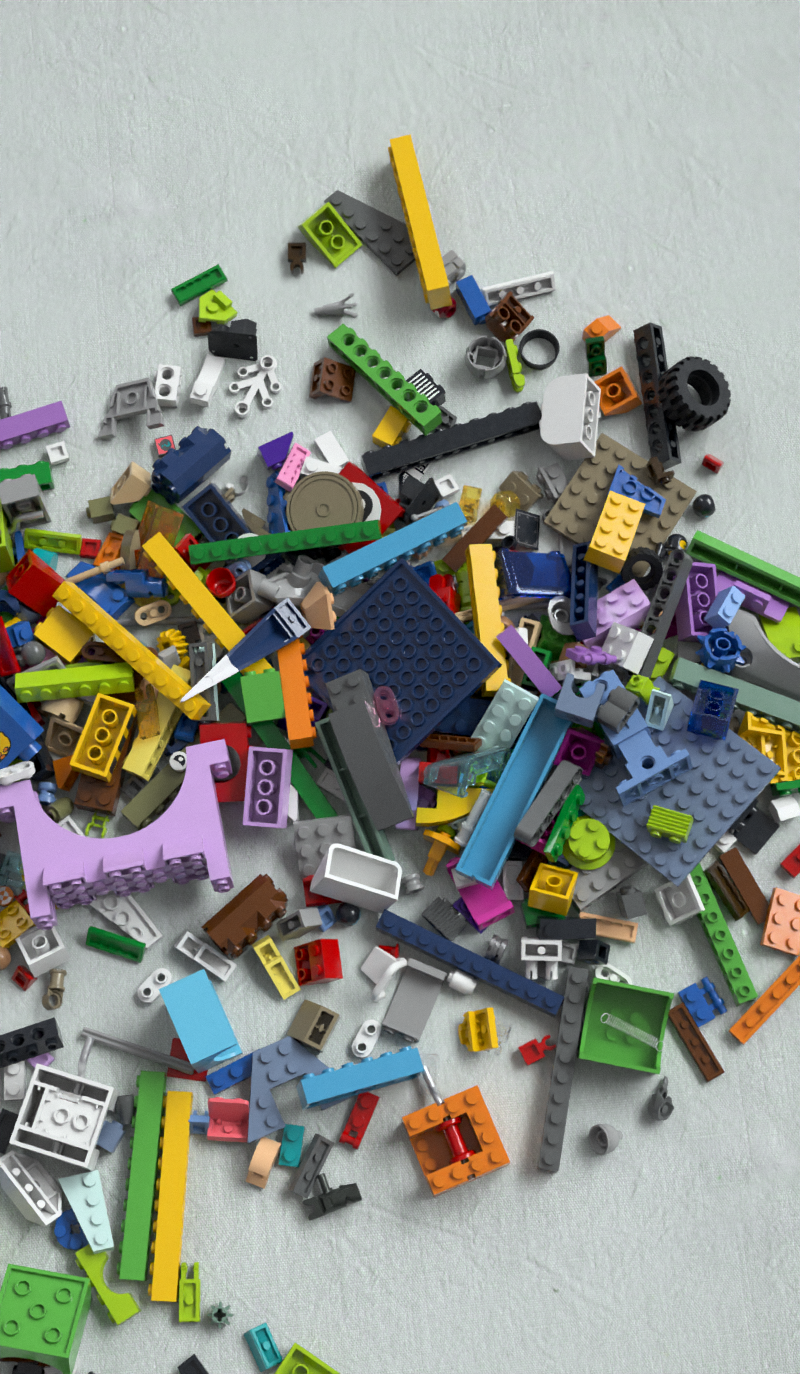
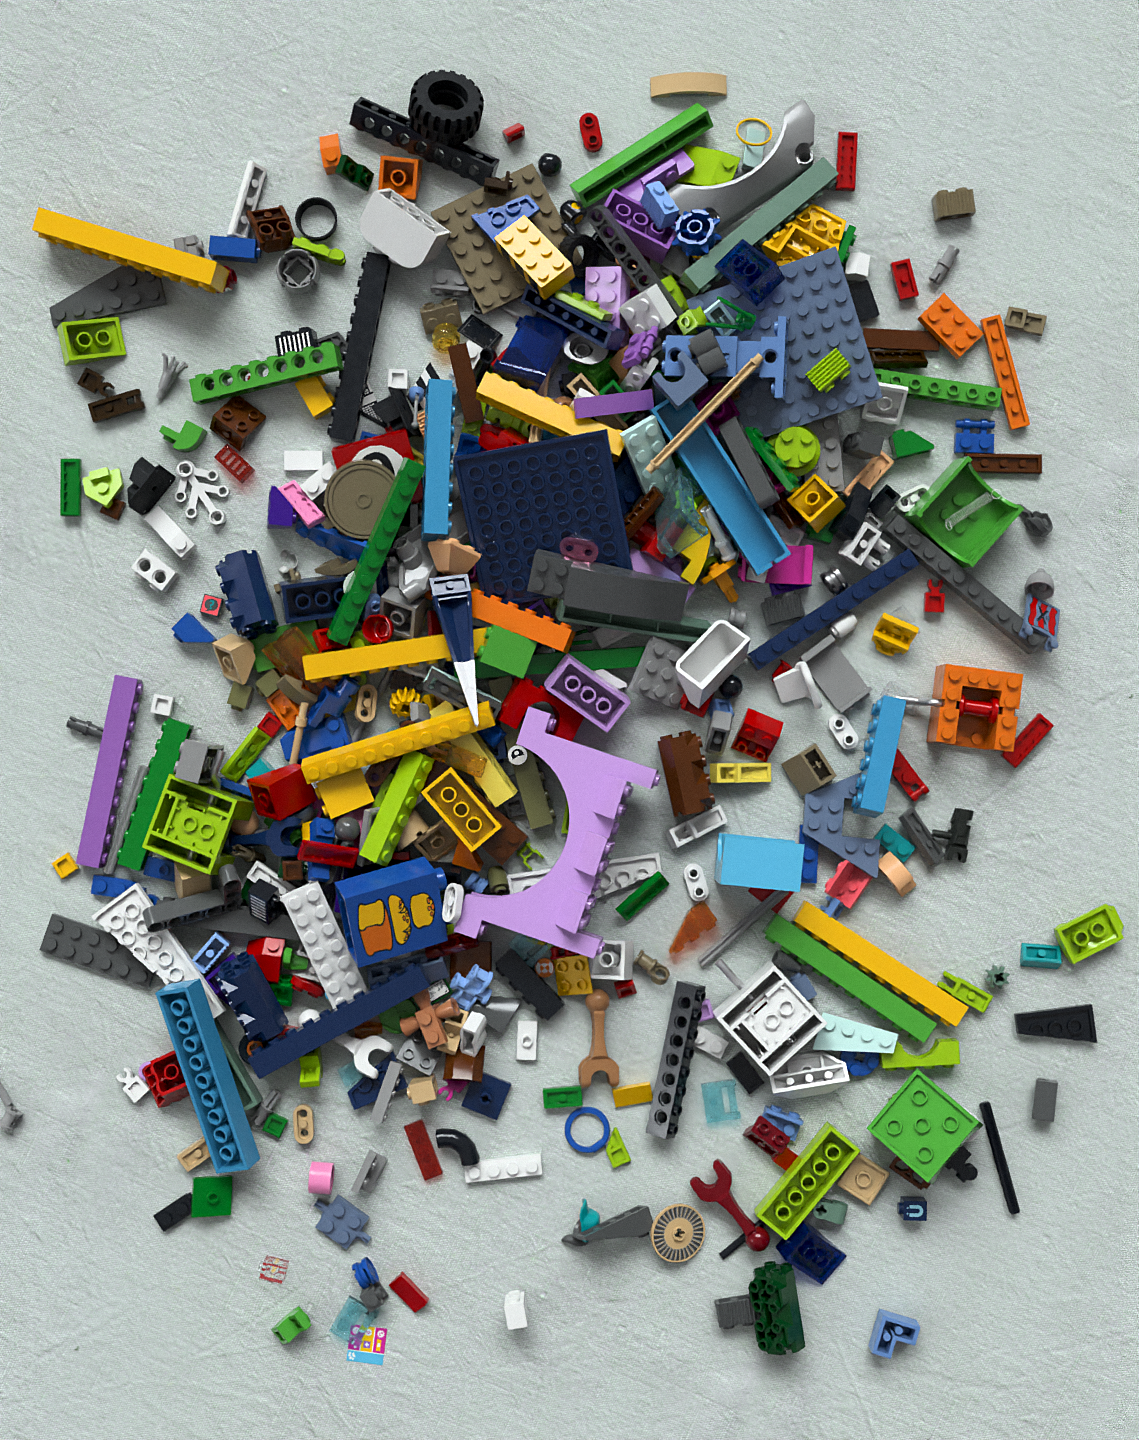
camera: 60 degrees left, 15 degrees up
(116, 1003) = (693, 923): none -> clear orange slope
(132, 400) = (151, 610): light grey wing -> none
(134, 441) = (191, 631): none -> blue slope
(288, 282) = (116, 406): none -> dark brown plate
(292, 350) = (187, 440): none -> bright green brick
(293, 411) = (244, 474): none -> clear red slope
(456, 1213) = (1028, 739): none -> red plate
(470, 502) = (429, 367): clear yellow piece -> none
(568, 738) = (721, 396): none -> tan piece
(575, 1157) = (1041, 618): none -> sand blue flag
(600, 599) = (577, 301): none -> lime plate
(657, 945) = (908, 444): none -> green slope
(671, 728) = (743, 318): none -> green plant
(755, 523) = (590, 131): none -> red plate

